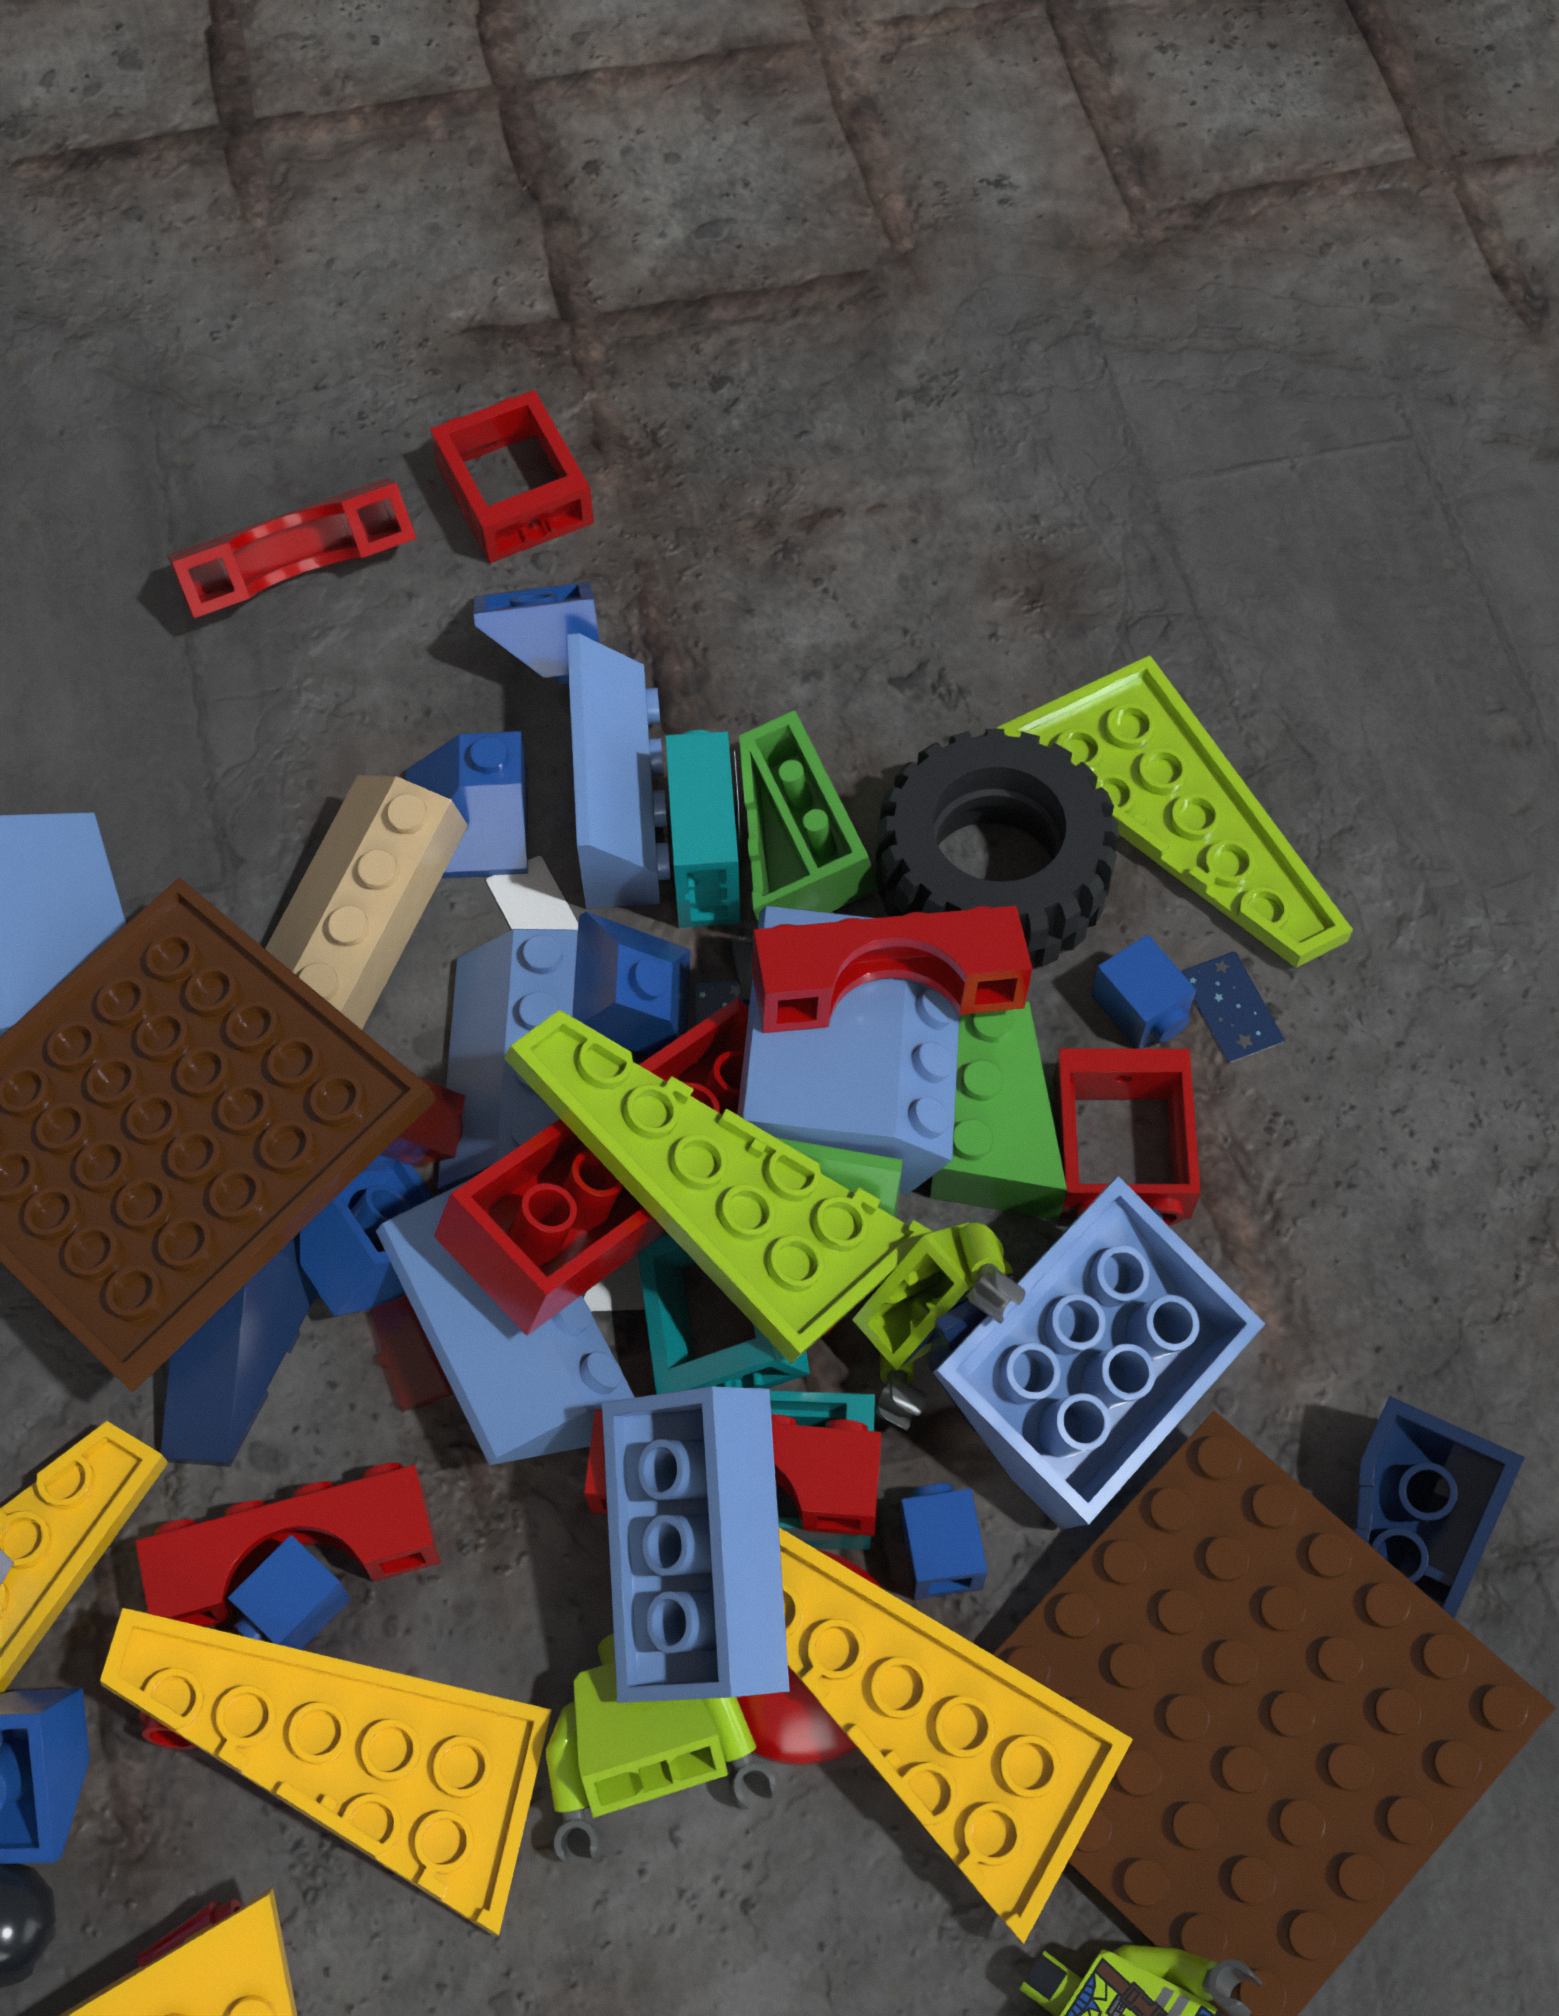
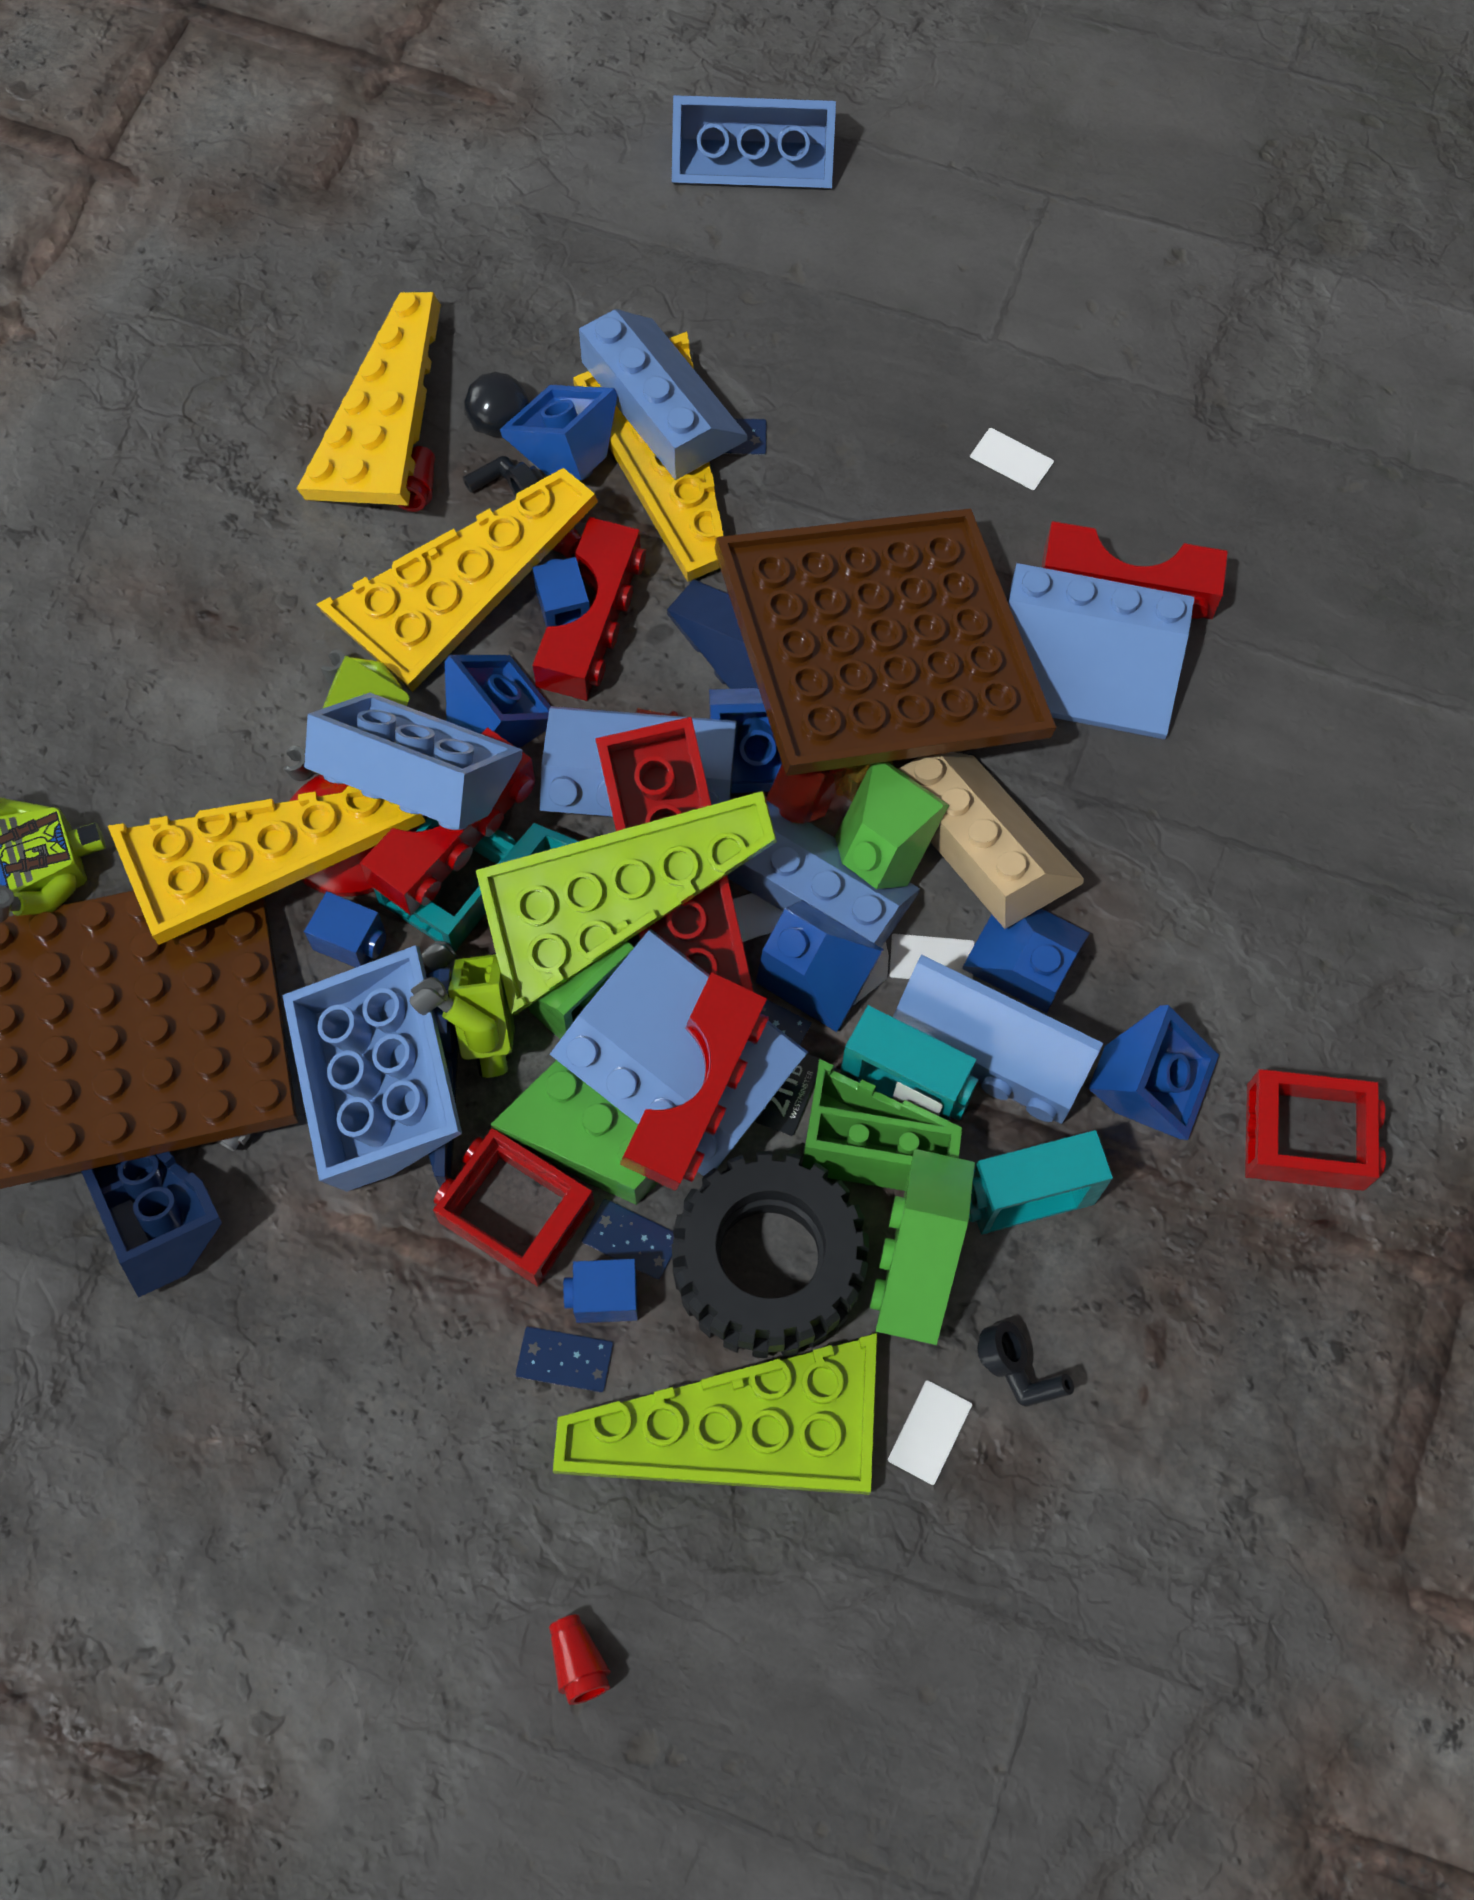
camera: 120 degrees right, 5 degrees up
(123, 1779) = (518, 475): none -> black plate
(307, 538) = (1322, 890): red arch -> none
(422, 995) = (888, 827): none -> bright green slope
(513, 1570) = (494, 695): none -> blue slope
(743, 650) = (1038, 1182): none -> teal window
(881, 699) = (925, 1247): none -> bright green wedge
(933, 619) = (1005, 1354): none -> black plate
(1047, 655) = (929, 1432): none -> white sticker
(1061, 1012) = (630, 1236): none -> dark blue sticker
(1493, 811) = (577, 1661): none -> red cone

